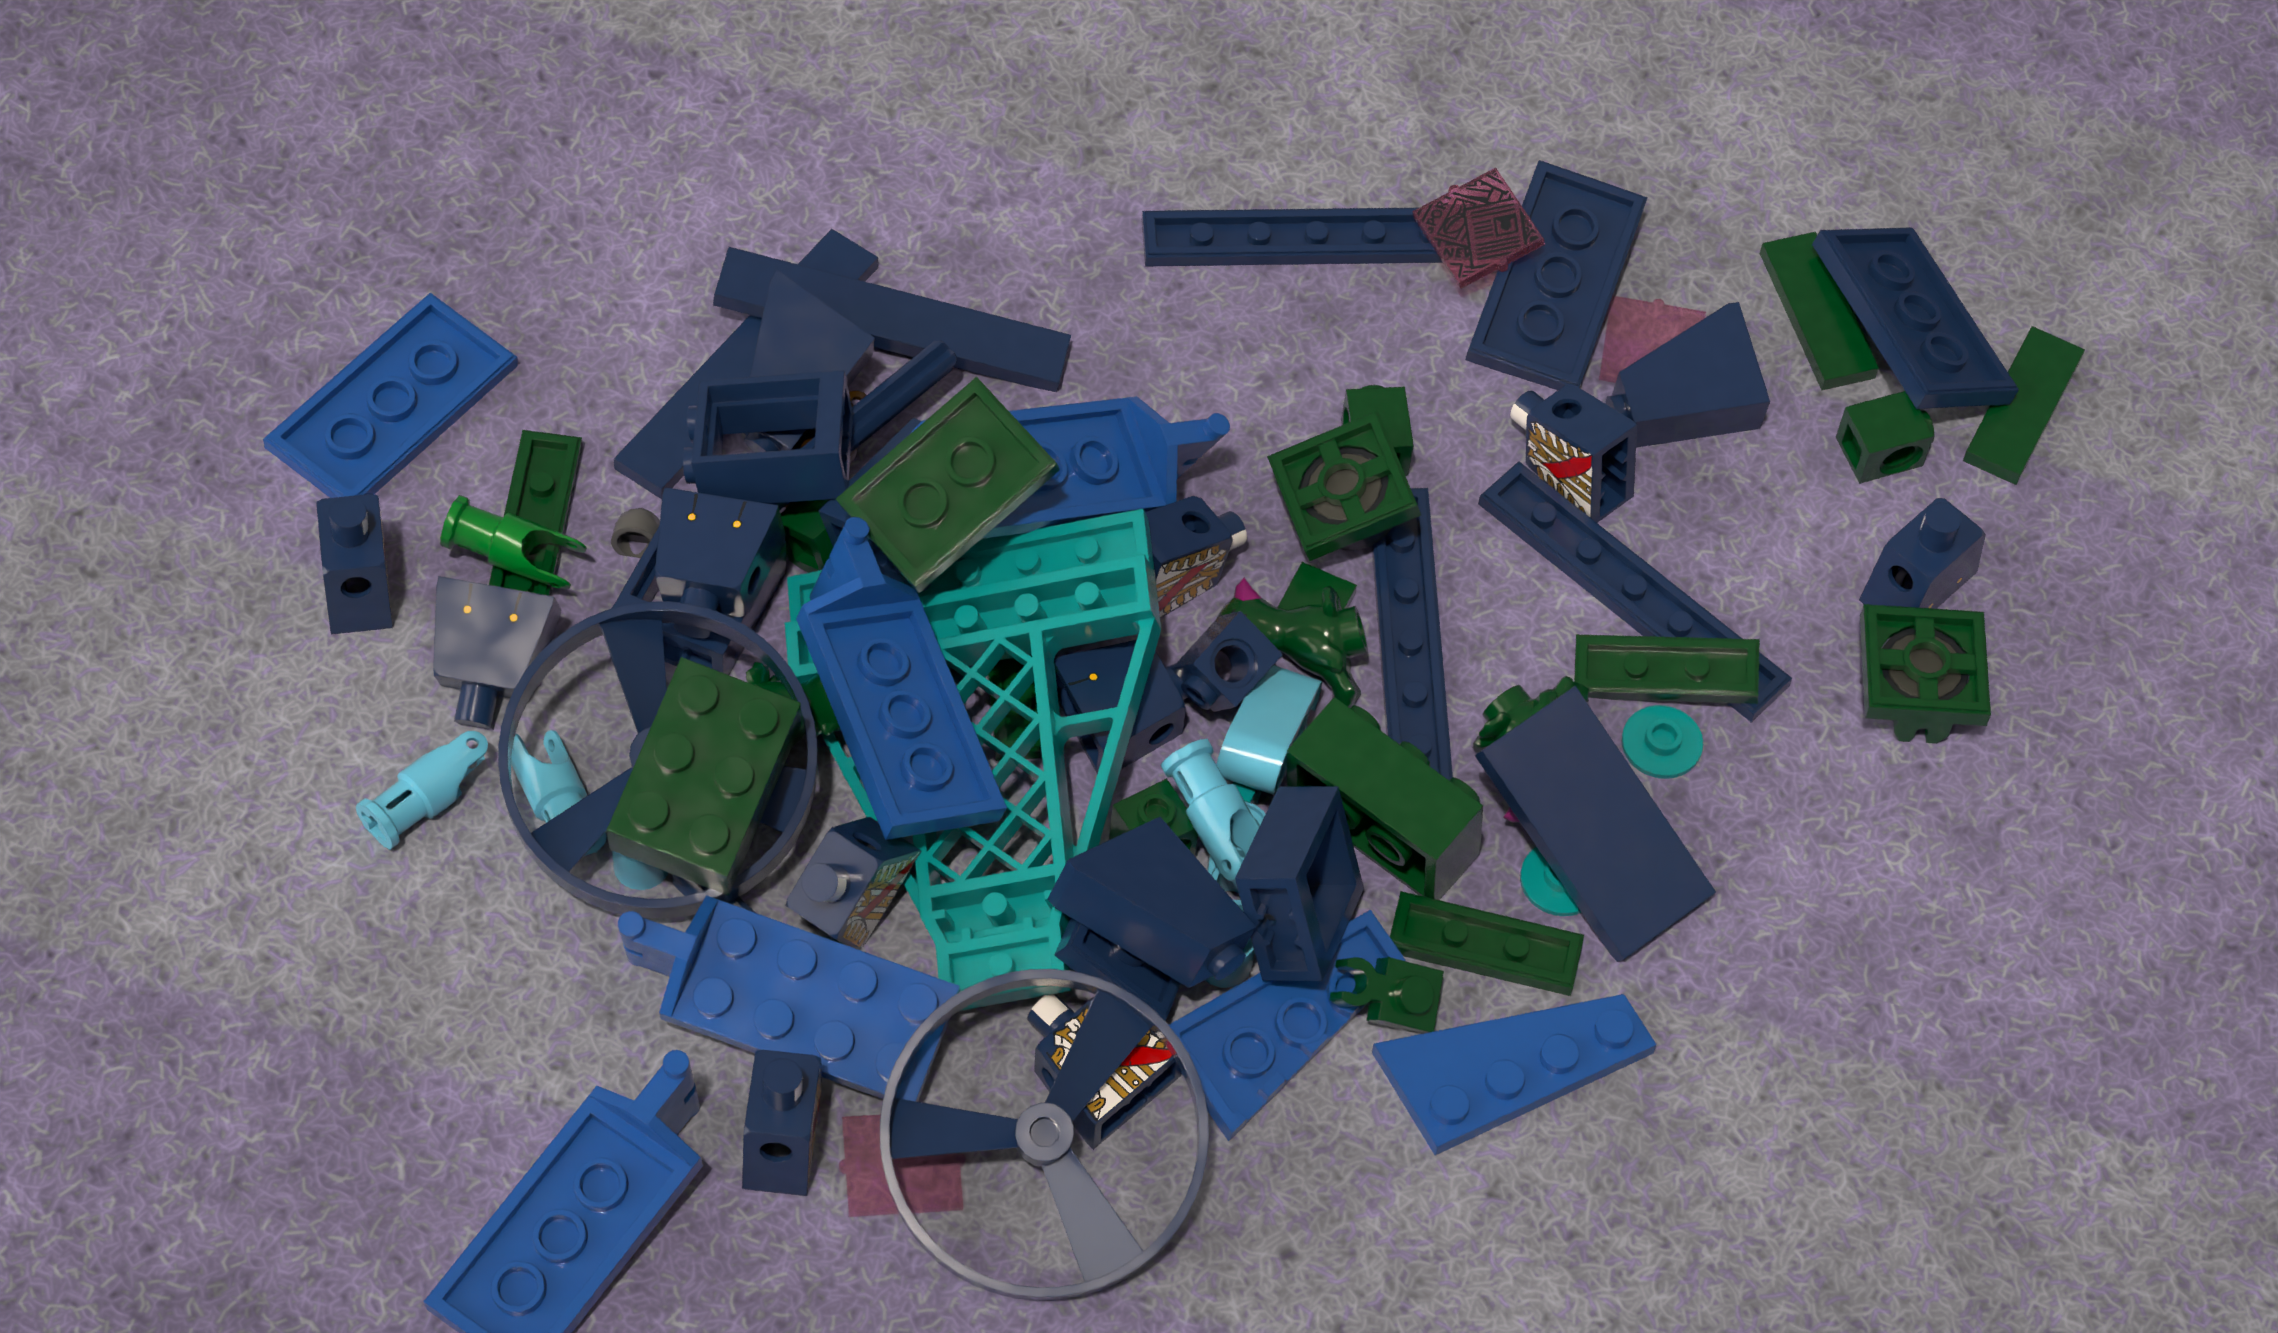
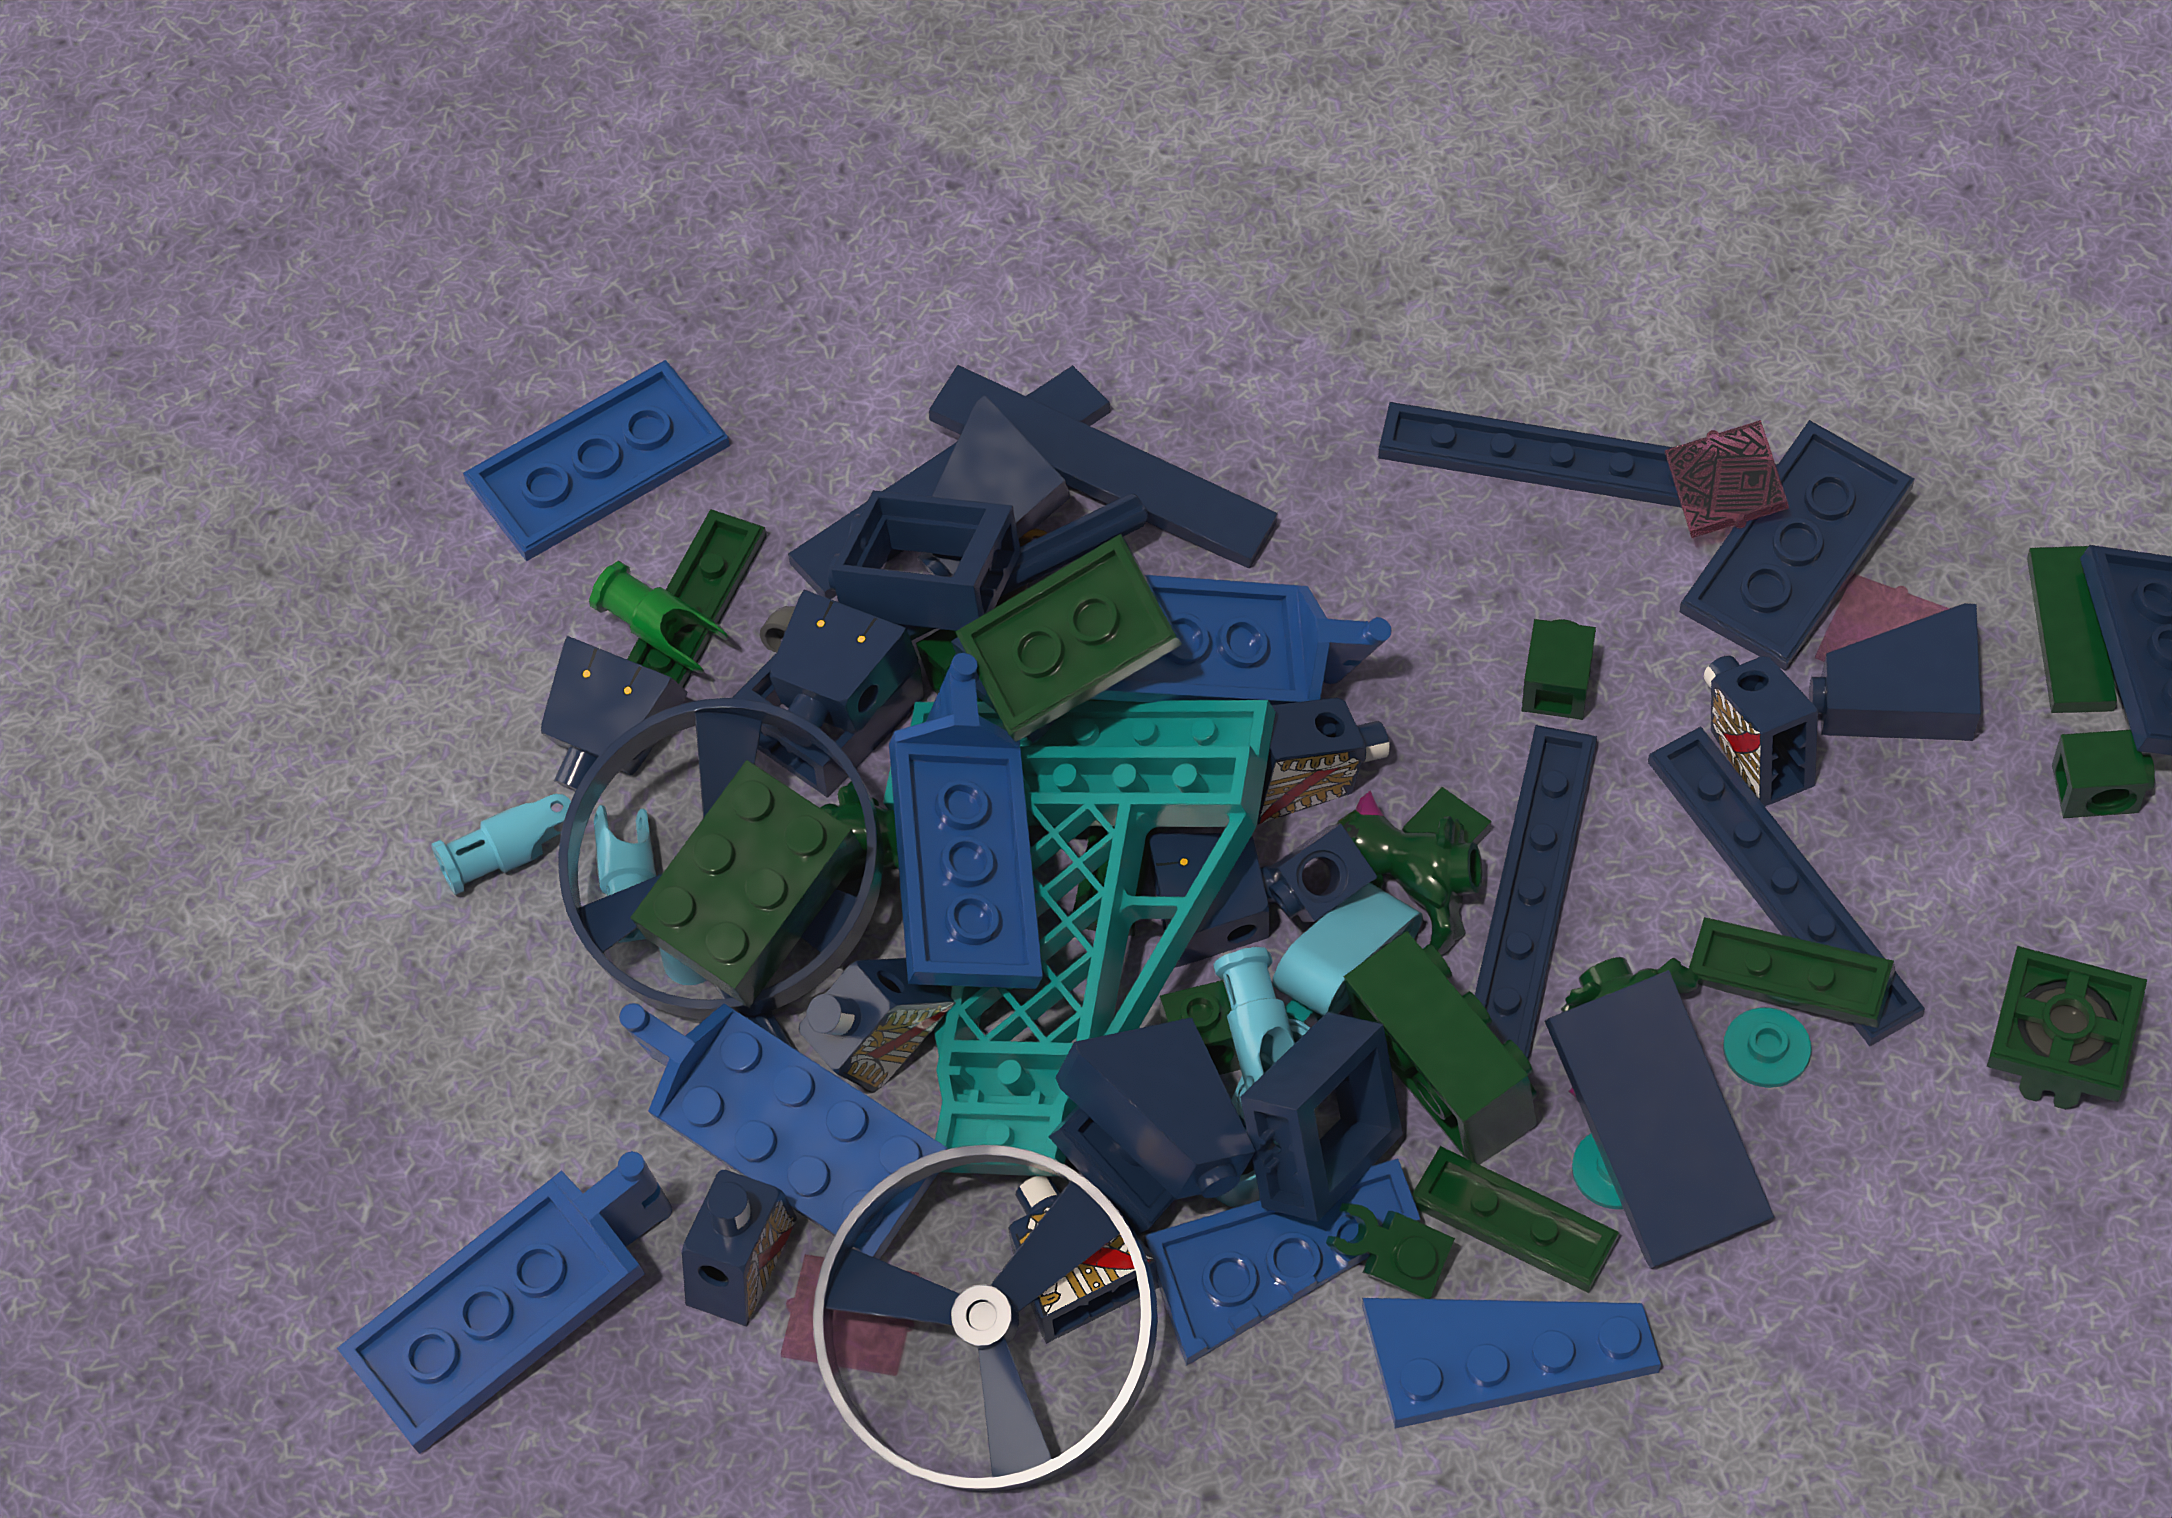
camera: 25 degrees right, 0 degrees up
(350, 548) = (508, 588): dark blue torso -> none
(1344, 487) = (1497, 723): dark green piece -> none
(1937, 550) = (2109, 910): dark blue torso -> none

